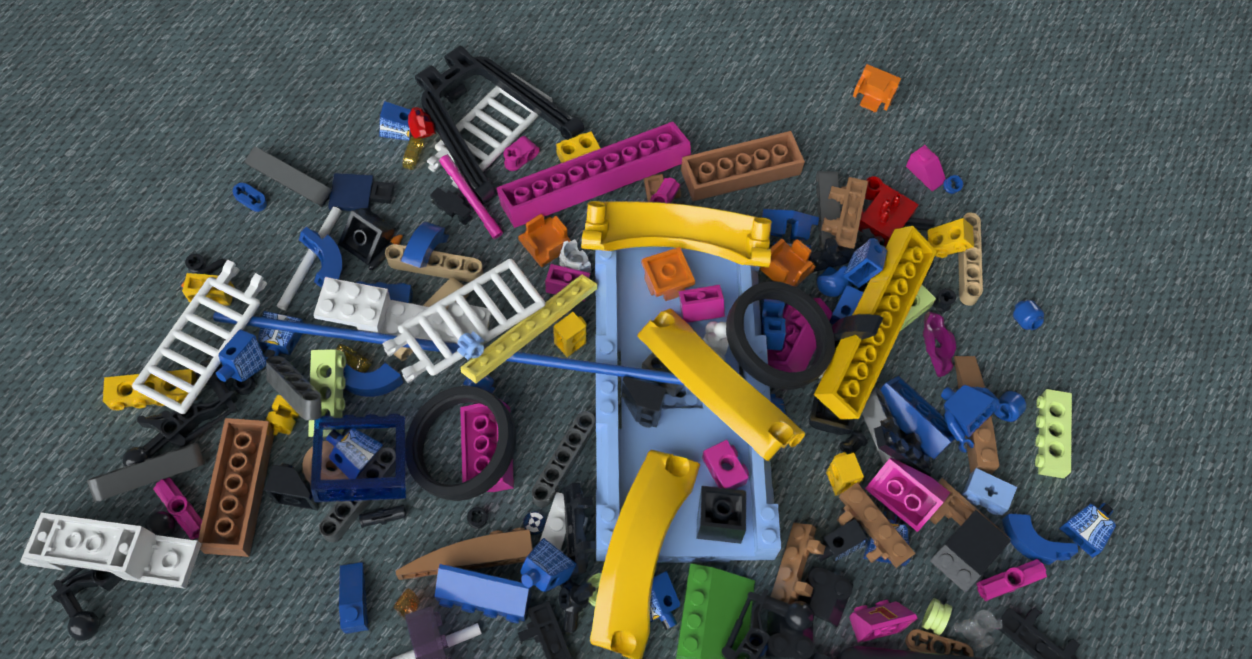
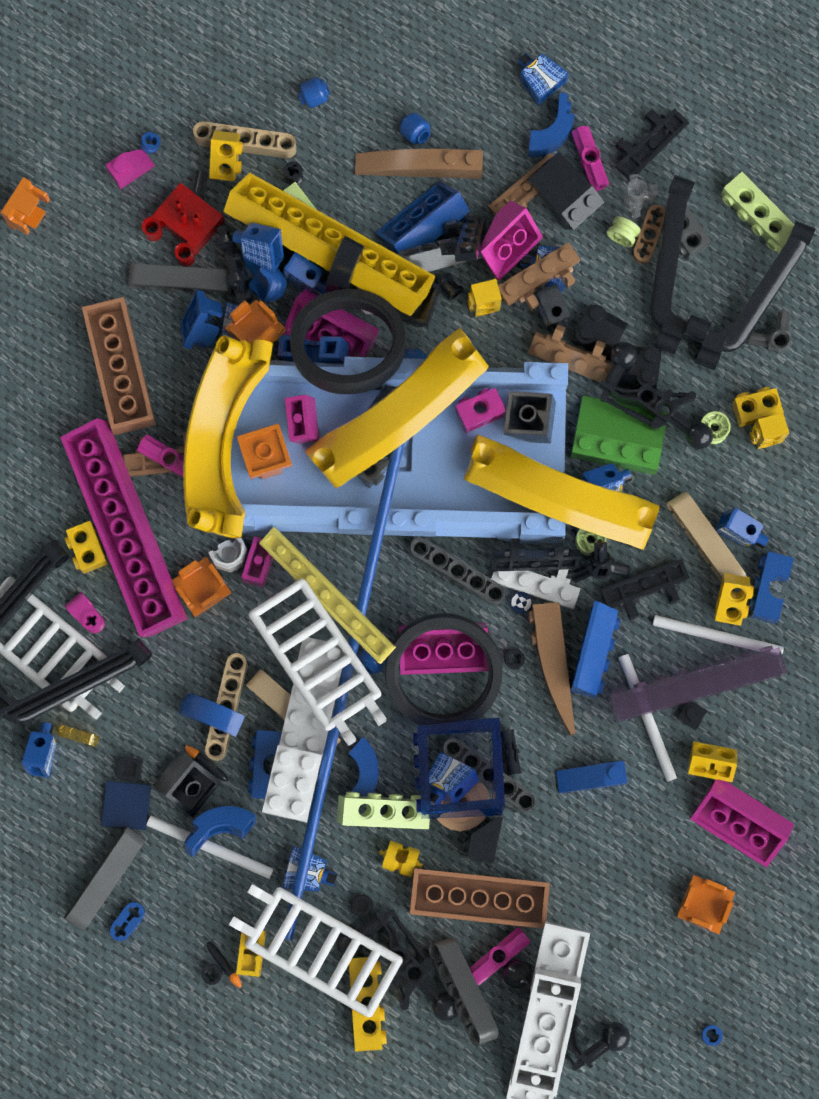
camera: 85 degrees left, 15 degrees up
(241, 357) = (340, 905): blue torso -> none
(293, 388) = (379, 844): dark grey beam -> none
(354, 359) = (341, 785): clear yellow beam -> none
(407, 603) = (605, 721): clear orange plate -> none
(420, 123) = (51, 723): red rock -> none
(451, 205) = (152, 689): black piece -> none
(452, 170) = (114, 685): dark pink piece -> none
(470, 345) = (355, 651): light blue gear -> none
(546, 567) = (574, 587): blue torso -> none
(570, 334) = (323, 558): yellow brick -> none
(643, 401) = (414, 483): black slope -> none
(716, 337) = (346, 407): white piece -> none
(847, 225) = (175, 251): medium nougat hinge -> none
(880, 620) = (629, 281): dark pink slope -> none
(940, 357) = (355, 187): magenta piece -> none
(969, 410) = (426, 169): blue torso -> none
(999, 491) = (505, 153): light blue brick -> none
(1061, 405) = (437, 83): yellowish green brick -> none

